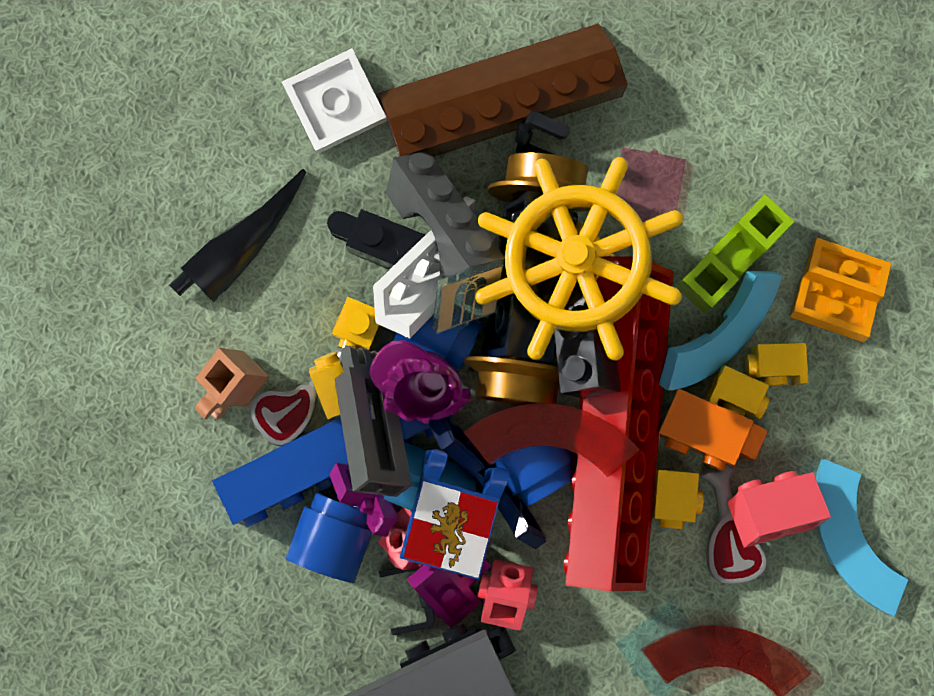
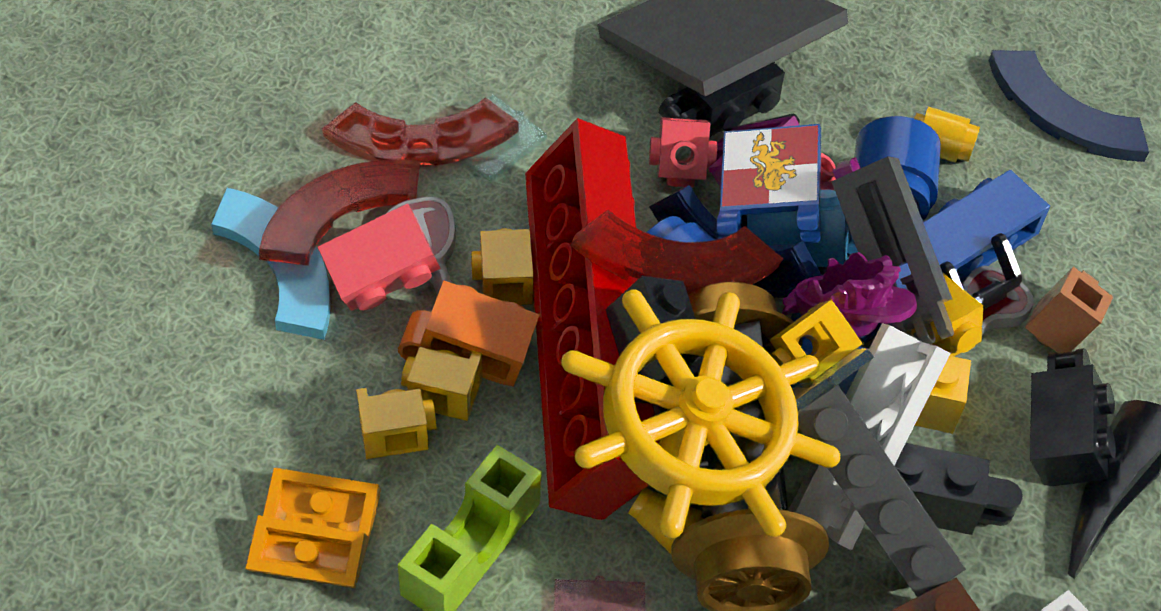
camera: 170 degrees right, 30 degrees down
(156, 607) = (1061, 115): none -> dark blue tile
(265, 284) = (1070, 421): none -> black brick
(271, 586) = (954, 132): none -> yellow brick
(287, 410) = (997, 290): none -> black piece
(466, 331) = (828, 333): none -> yellow brick
(709, 353) = (450, 463): medium azure tile -> none
(810, 588) = (314, 207): none -> clear red tile

